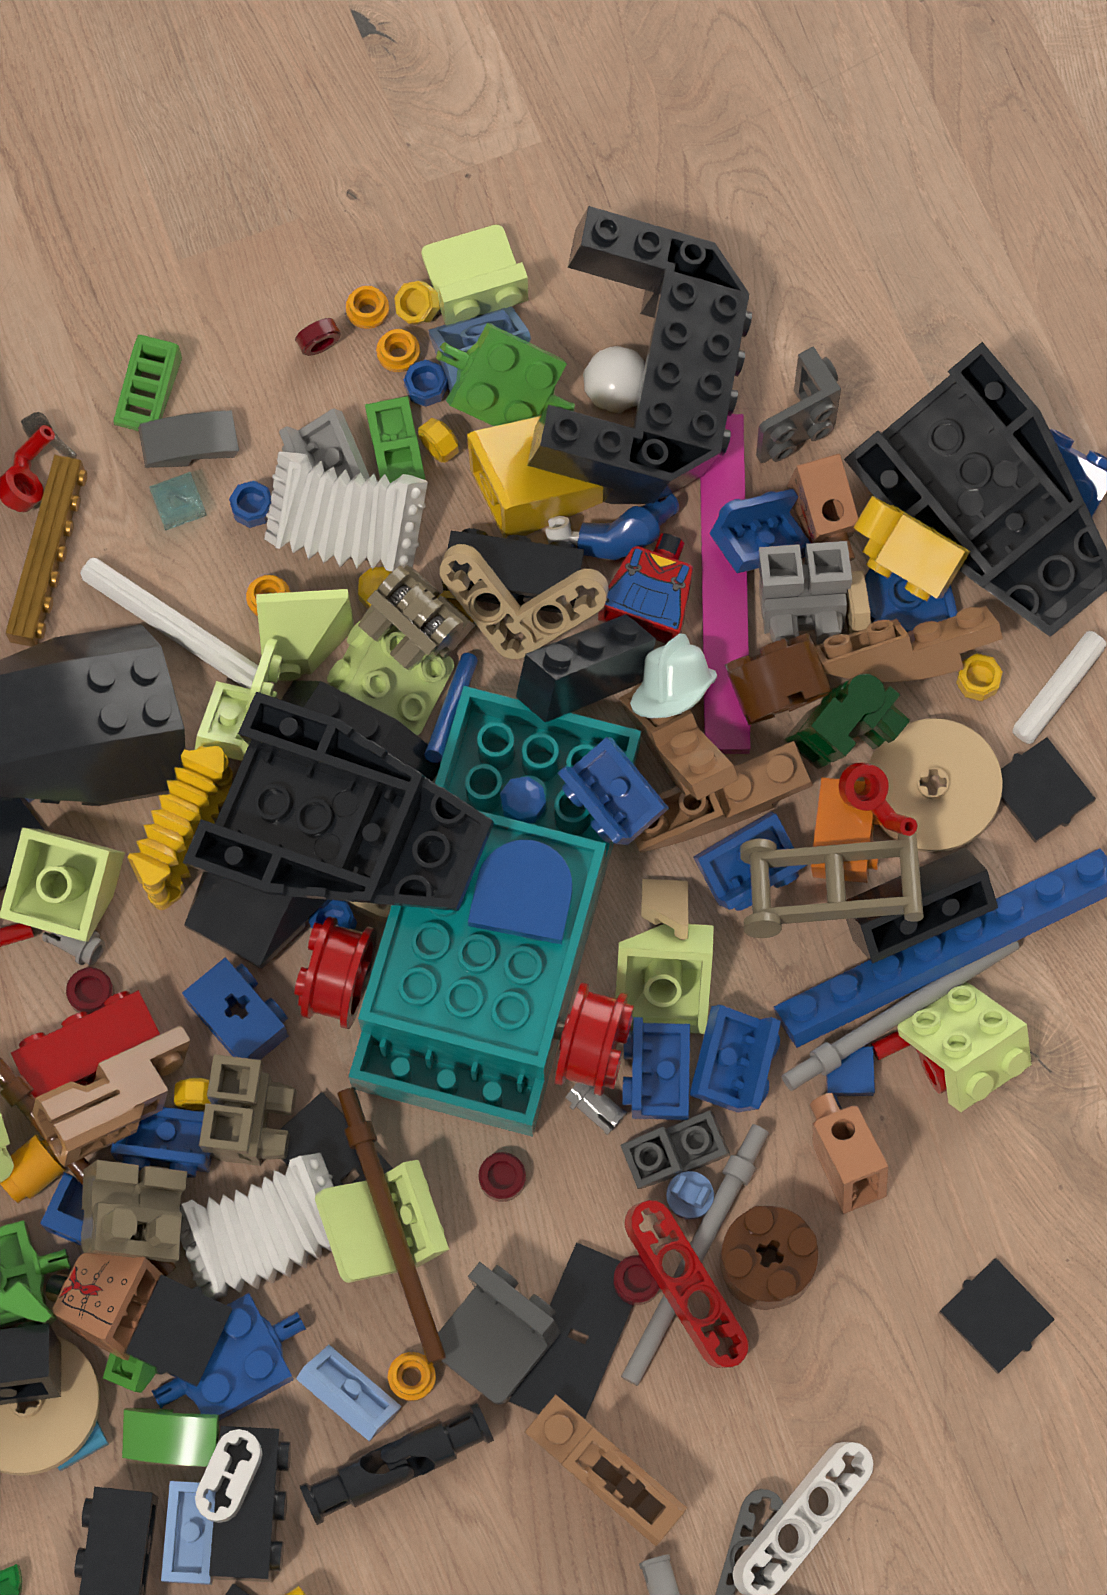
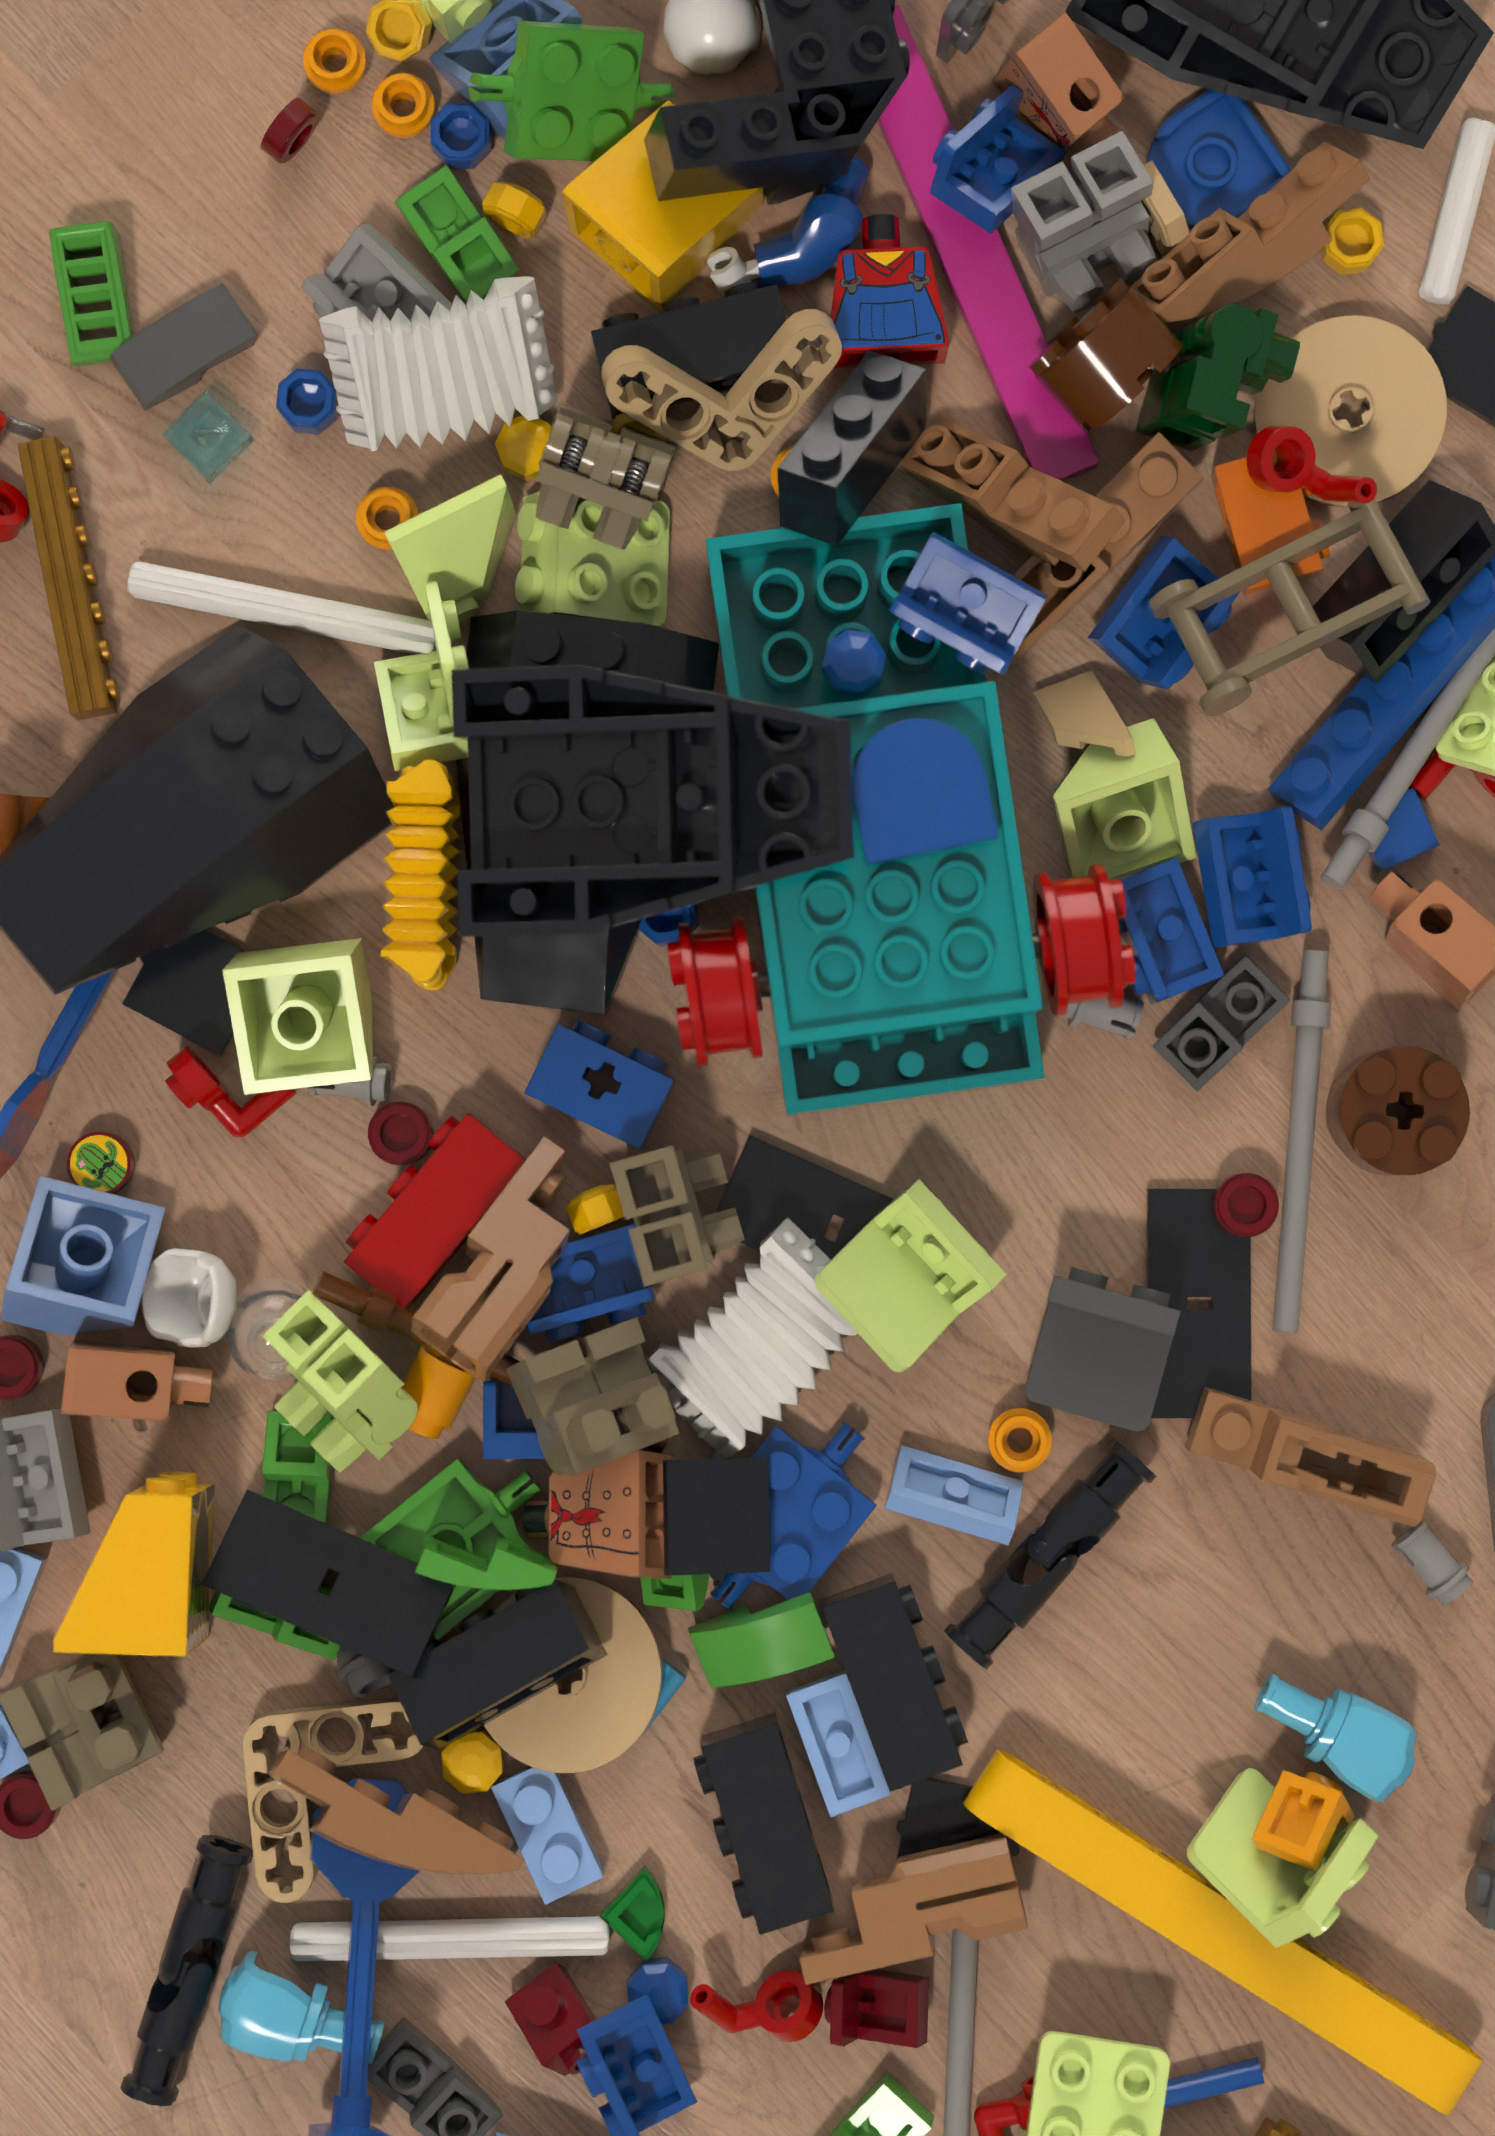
camera: 25 degrees left, 15 degrees up
(217, 1471) = (878, 1668): white beam -> none
(362, 1138) = (832, 1178): reddish brown bar -> none
(440, 734) = (696, 571): blue bar -> none
(502, 1177) = (1021, 1146): dark red tile -> none
(672, 679) = (971, 418): light aqua piece -> none
(690, 1195) = (1264, 1071): medium blue plate -> none
(692, 1279) = (1314, 1182): red beam -> none
(909, 549) = (1203, 107): yellow hinge -> none

